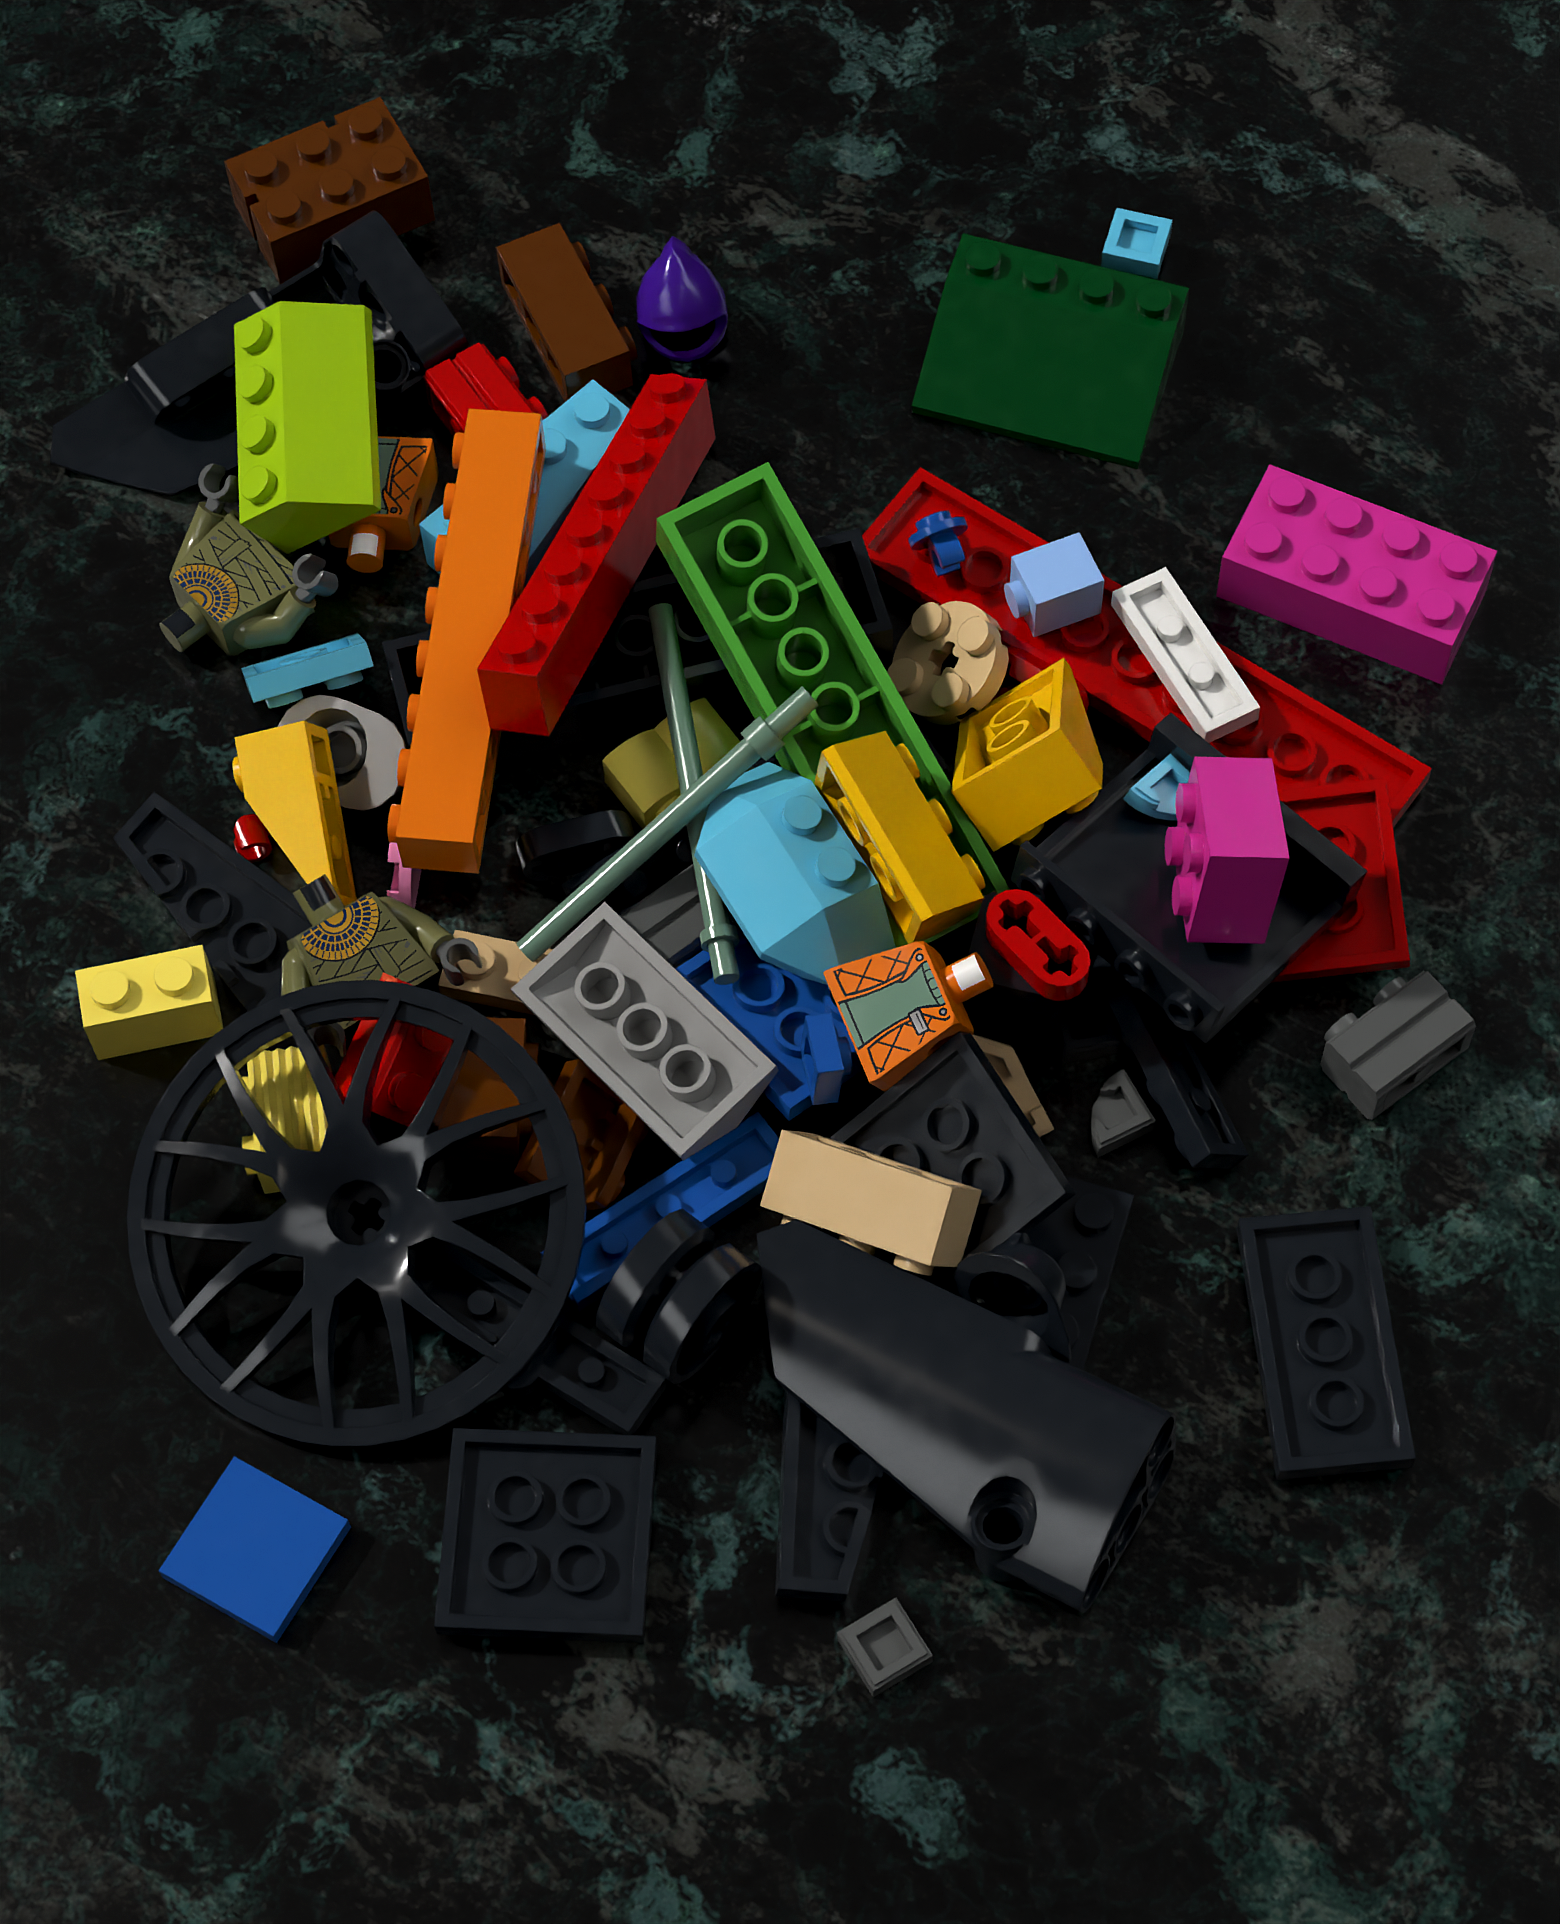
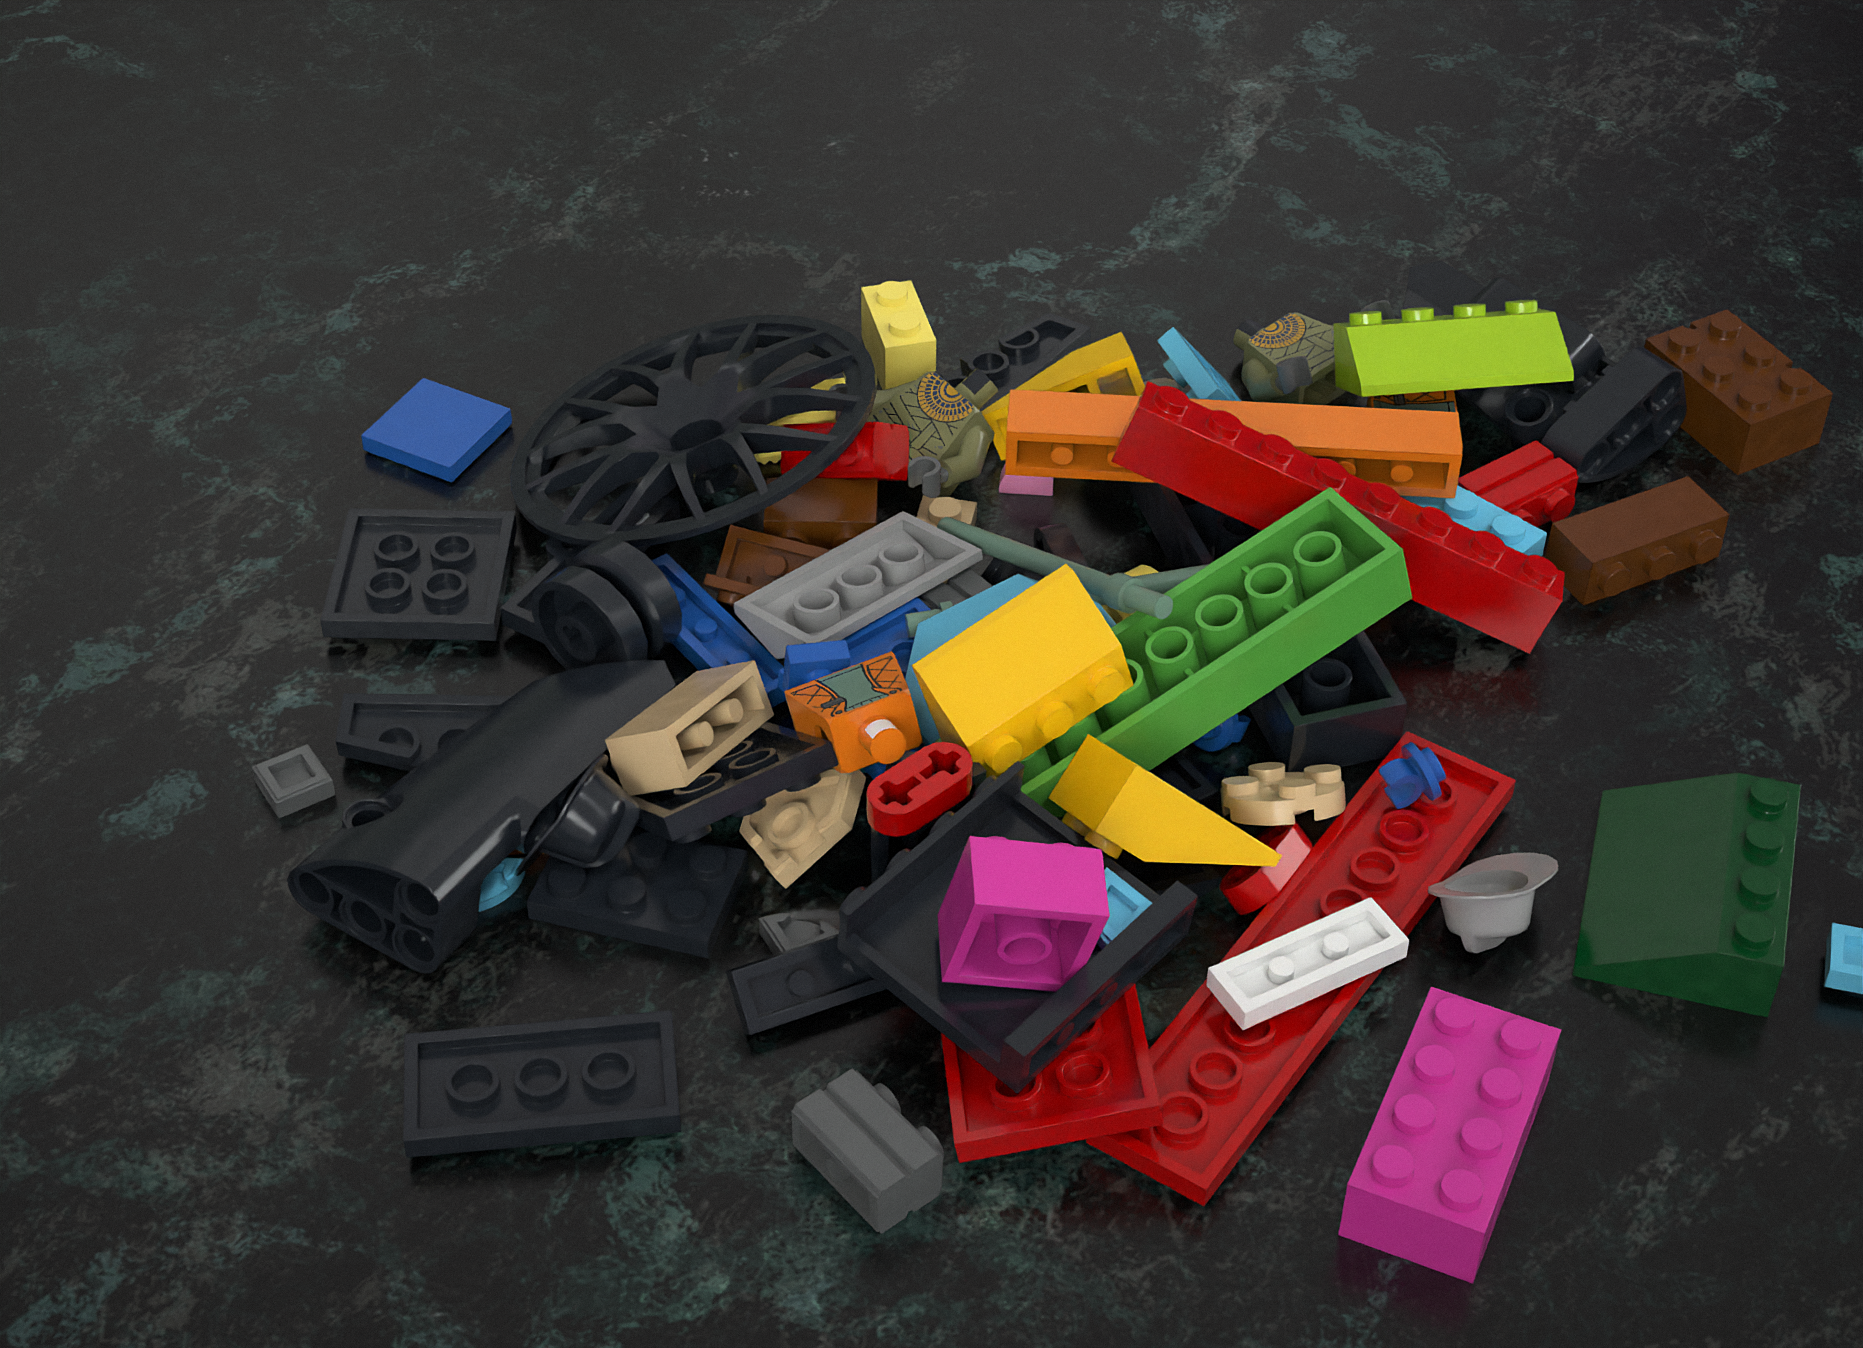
camera: 85 degrees right, 20 degrees down
(678, 297) = (1679, 596): dark purple piece -> none
(1055, 585) = (1375, 856): light blue brick -> none
(1071, 491) = (1493, 897): none -> light grey piece

